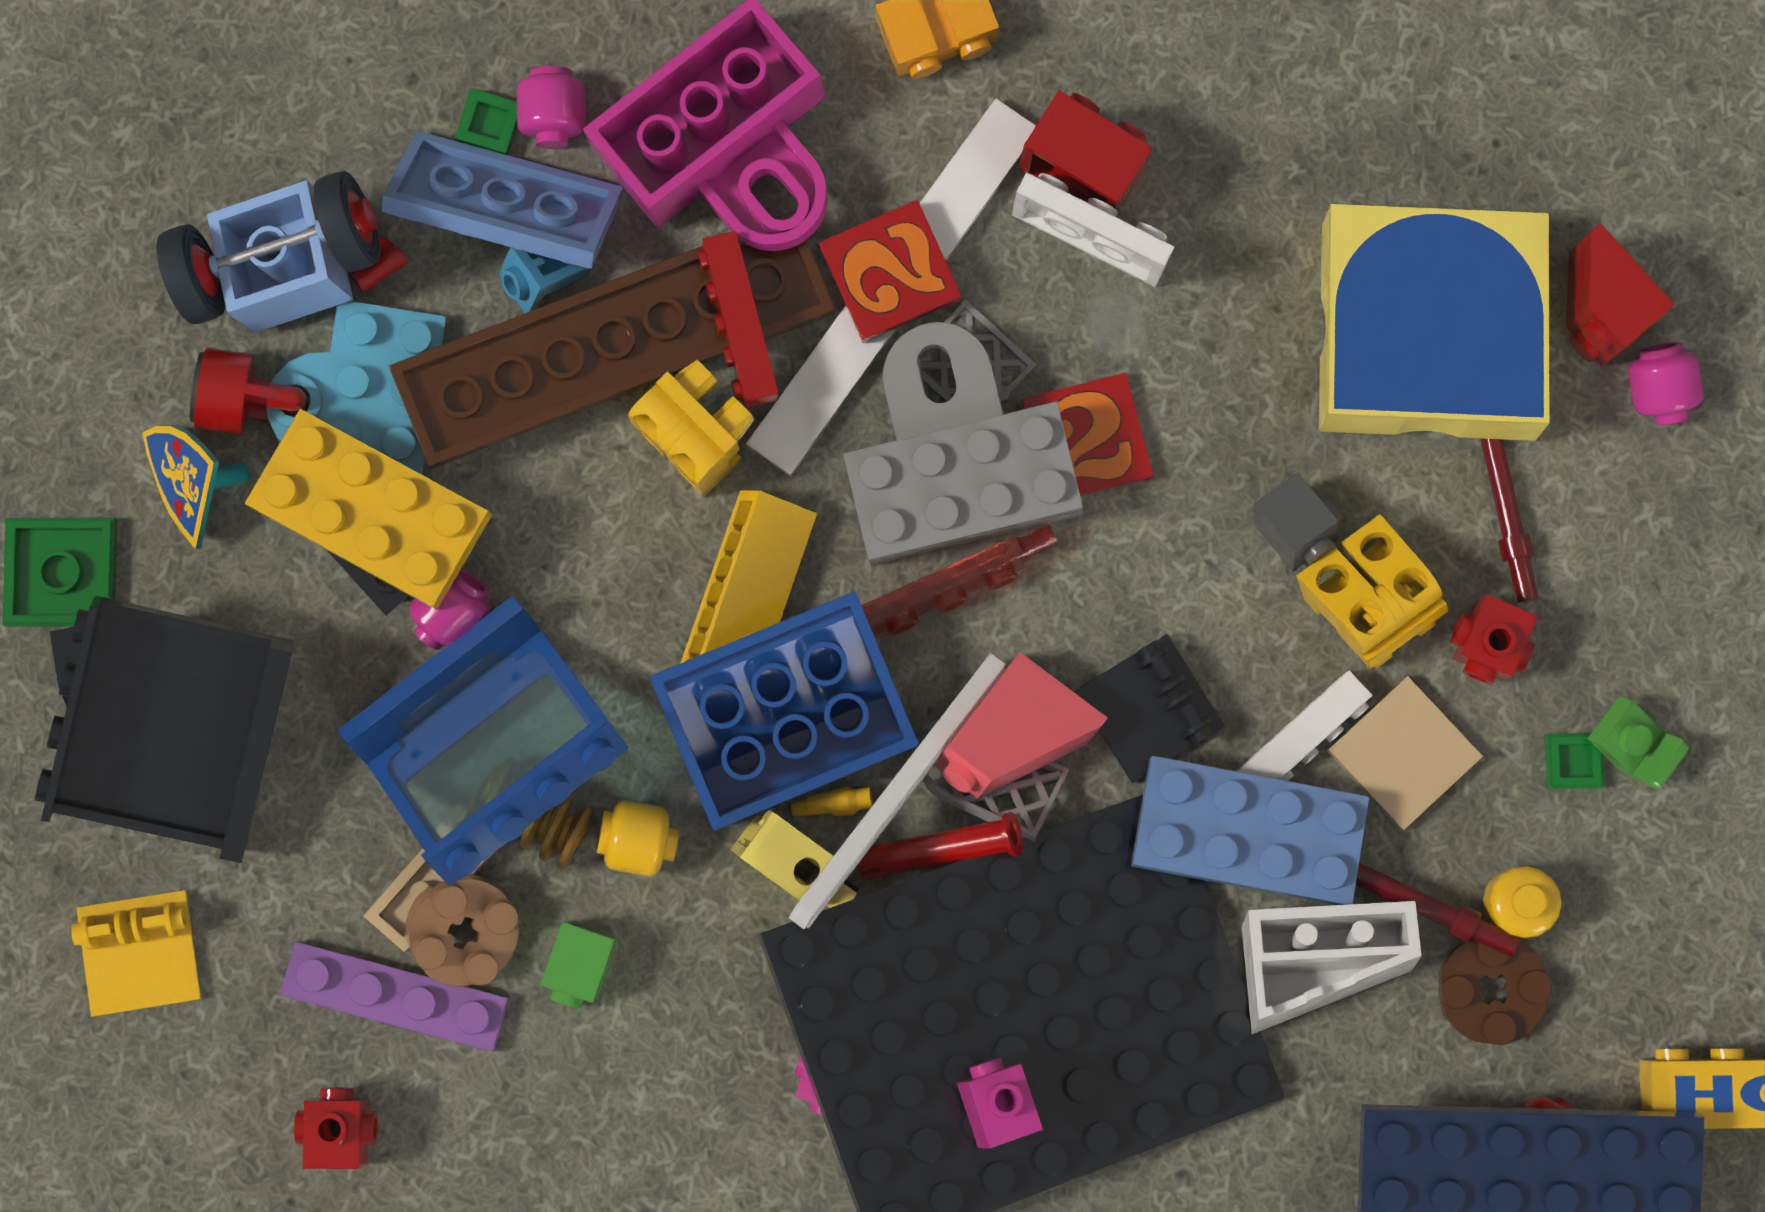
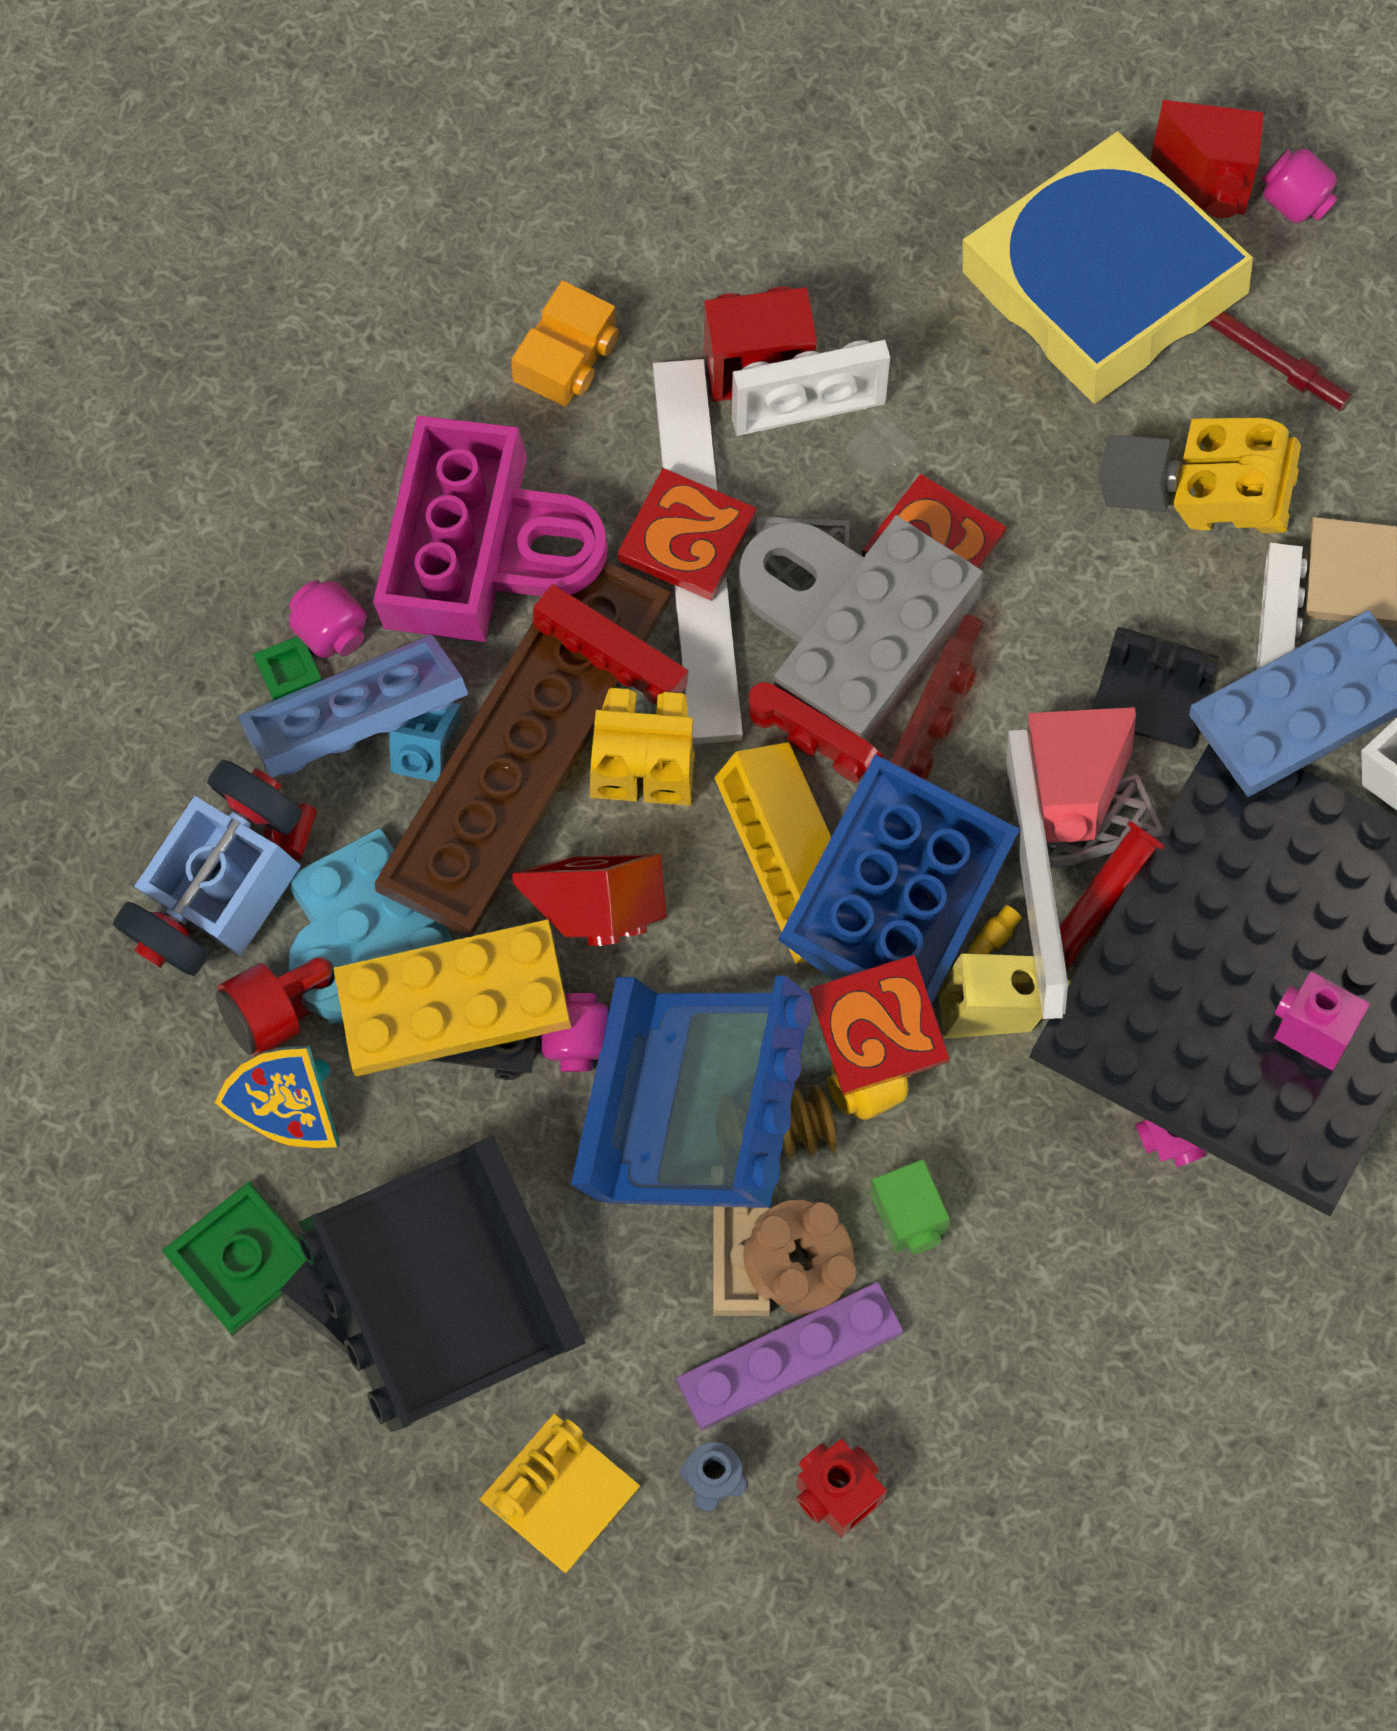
camera: 40 degrees left, 15 degrees down
(273, 1032) = (709, 1490): none -> sand blue brick
(550, 515) = (597, 894): none -> red slope
(662, 812) = (878, 1025): none -> tile
(842, 521) = (811, 730): none -> red plate
(1508, 627) = (1349, 441): red brick -> none

